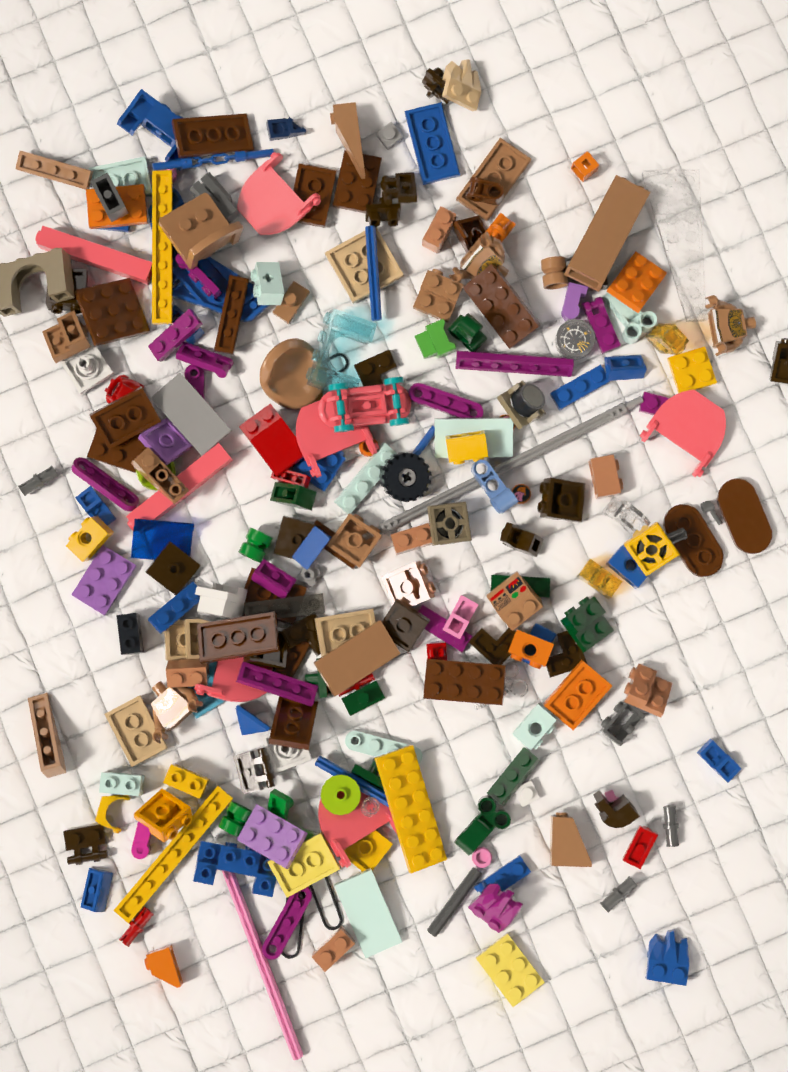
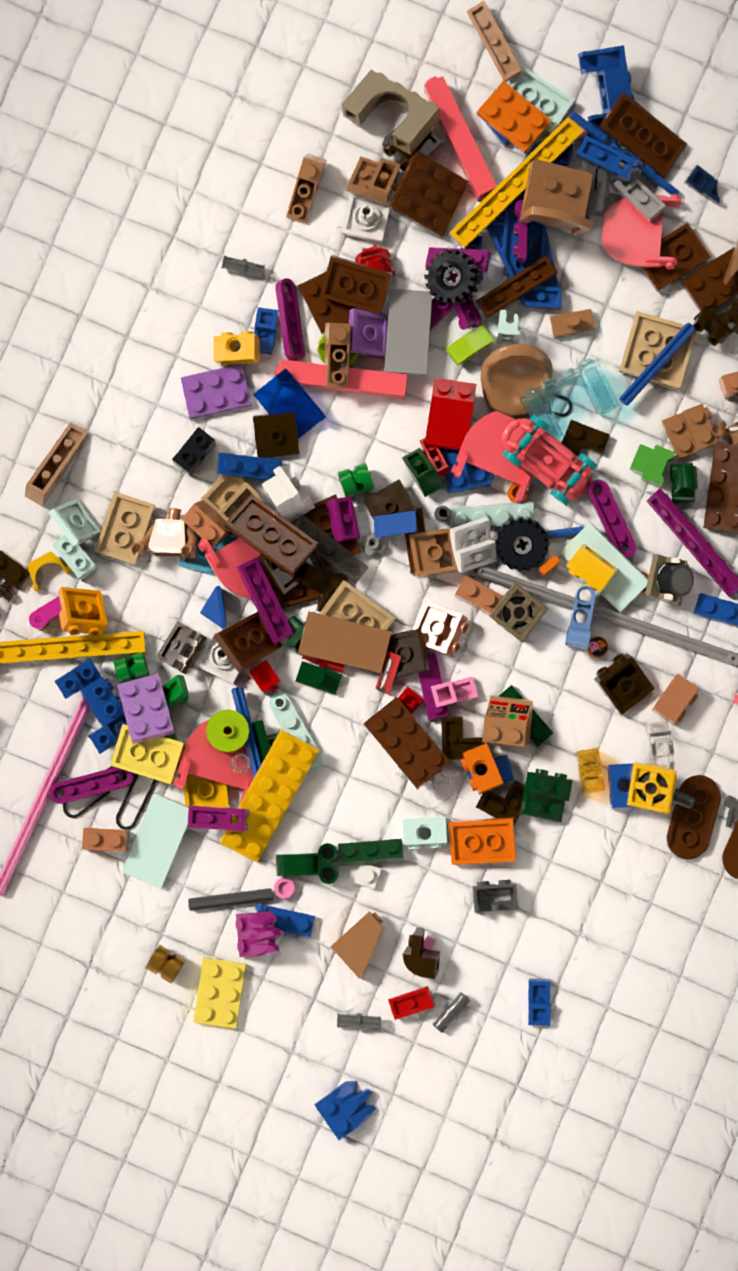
camera: 50 degrees right, 0 degrees up
(27, 387) = (306, 187): none -> medium nougat slope
(99, 761) = (75, 522): none -> light aqua plate
(109, 197) = (514, 105): dark grey brick -> none
(173, 355) = (440, 273): none -> black bush
(186, 780) = (124, 603): yellow brick -> none
(205, 172) = (606, 158): none -> blue plate
(239, 382) = (469, 344): none -> lime slope
(249, 177) = (639, 197): none -> light grey plate
(254, 350) = (507, 331): none -> light aqua hinge
(267, 283) = (568, 291): light aqua brick -> none
(328, 734) = (265, 677): none -> red brick
(334, 509) = (442, 513): none -> dark grey axle
(375, 509) = (473, 545): none -> white slope
(393, 859) = (217, 818): none -> magenta plate
(405, 648) = (388, 672): none -> sticker
(437, 473) = (549, 565): none -> orange tile
(456, 989) = (165, 964): none -> pearl gold wheel
(521, 540) = (560, 680): dark brown brick -> none
(647, 690) = (539, 892): nougat plate -> none

